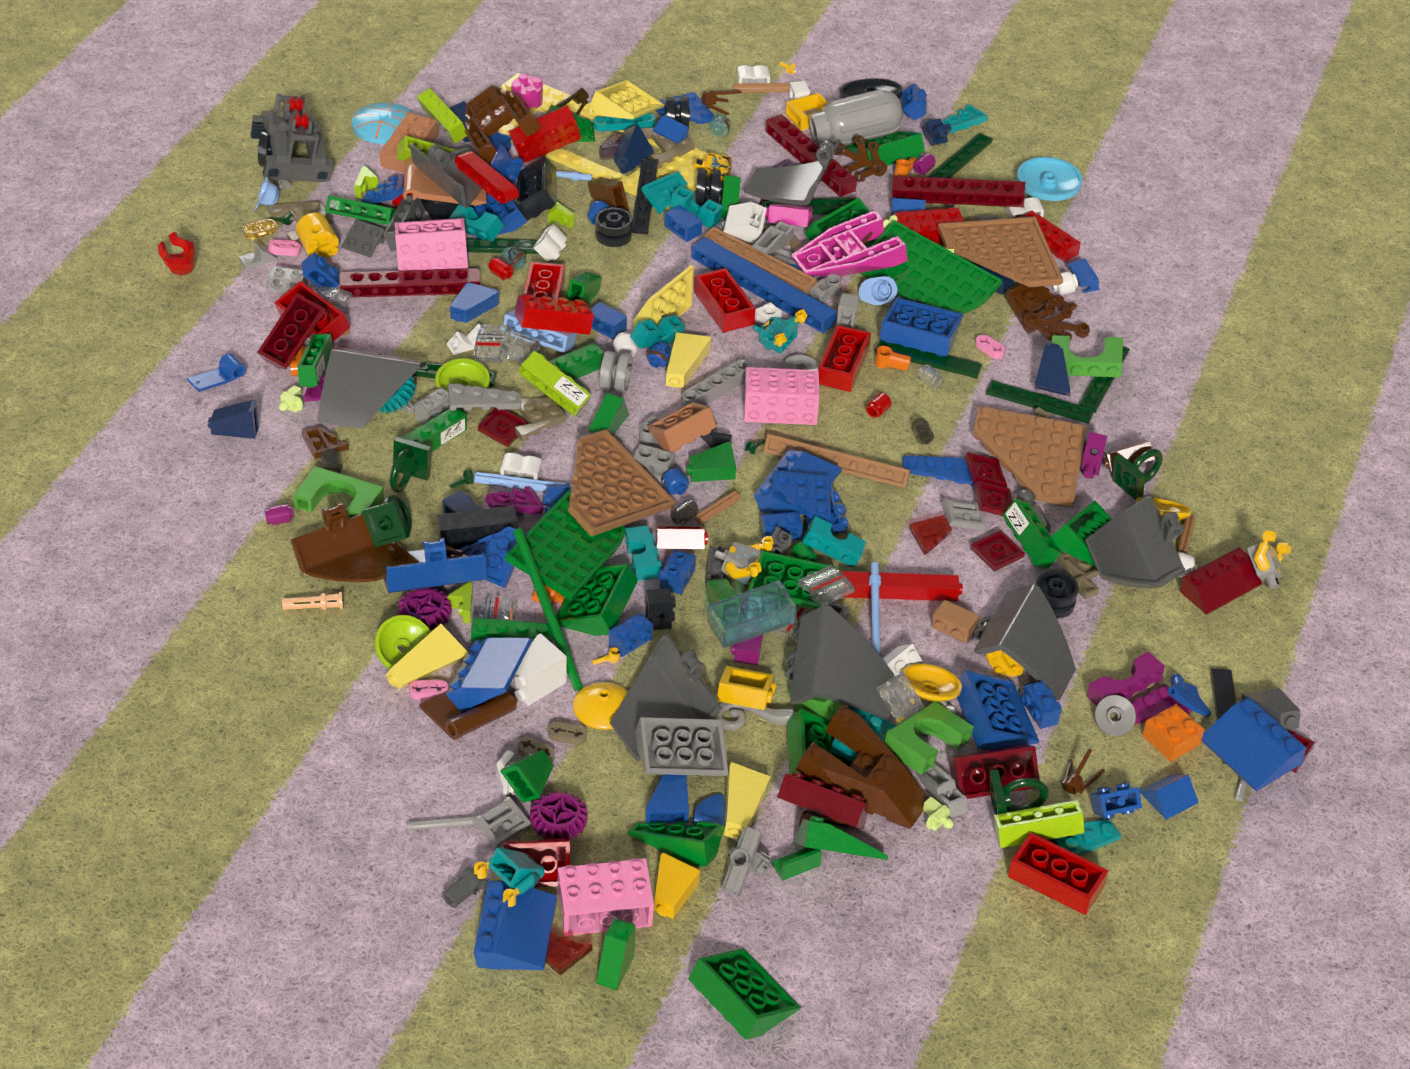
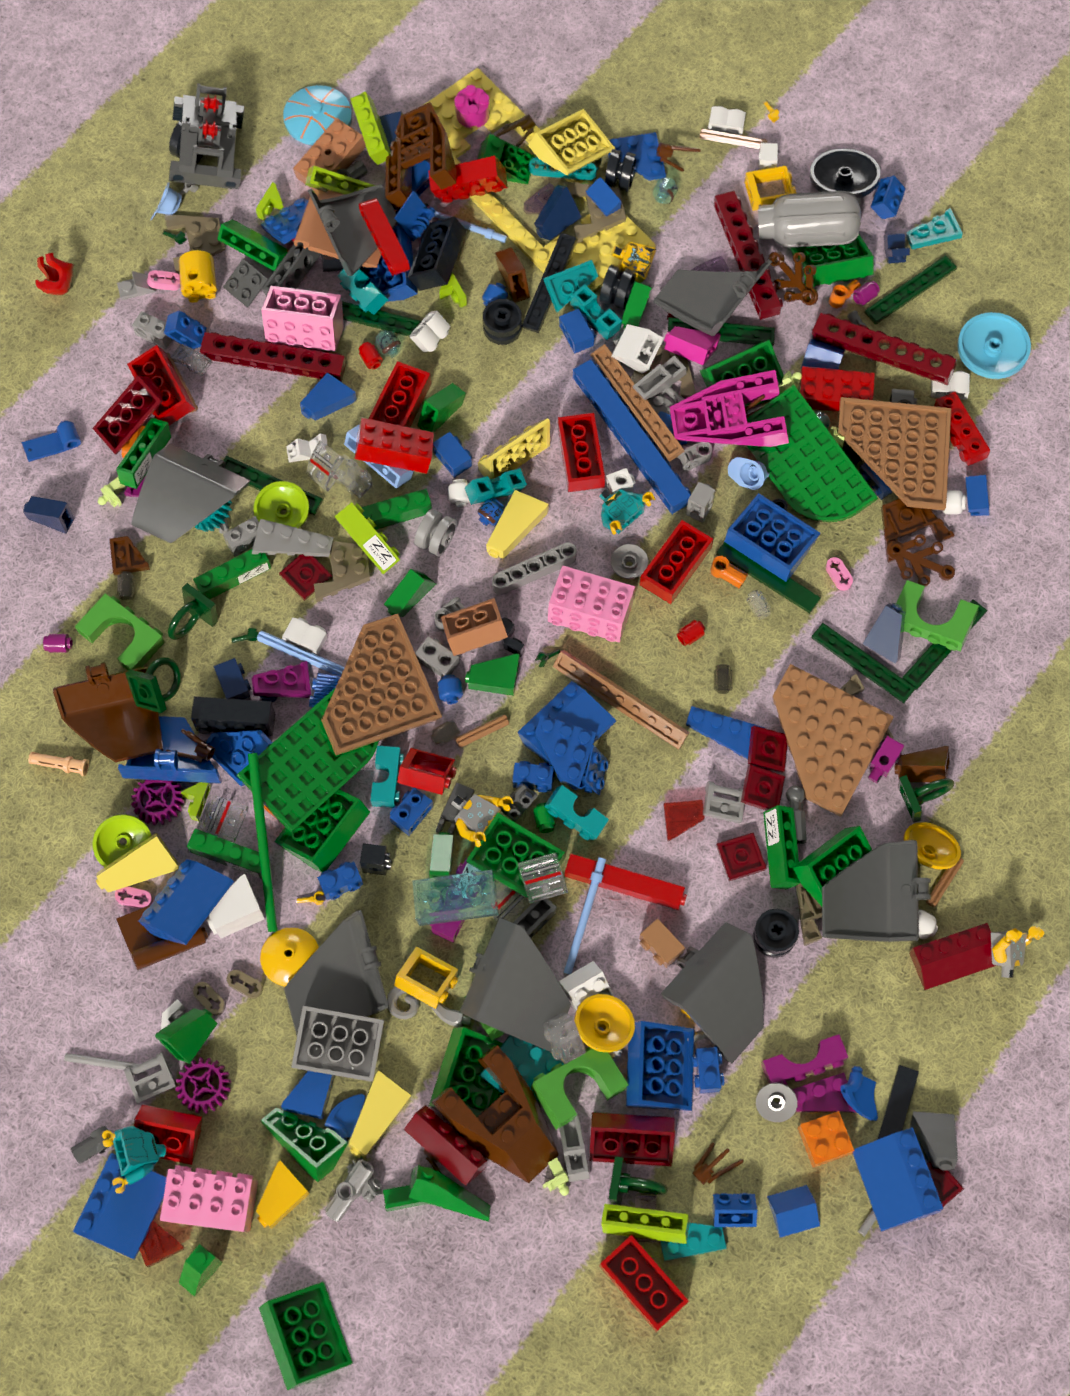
camera: 20 degrees right, 25 degrees up
(260, 228) = (149, 245): clear yellow plate -> none

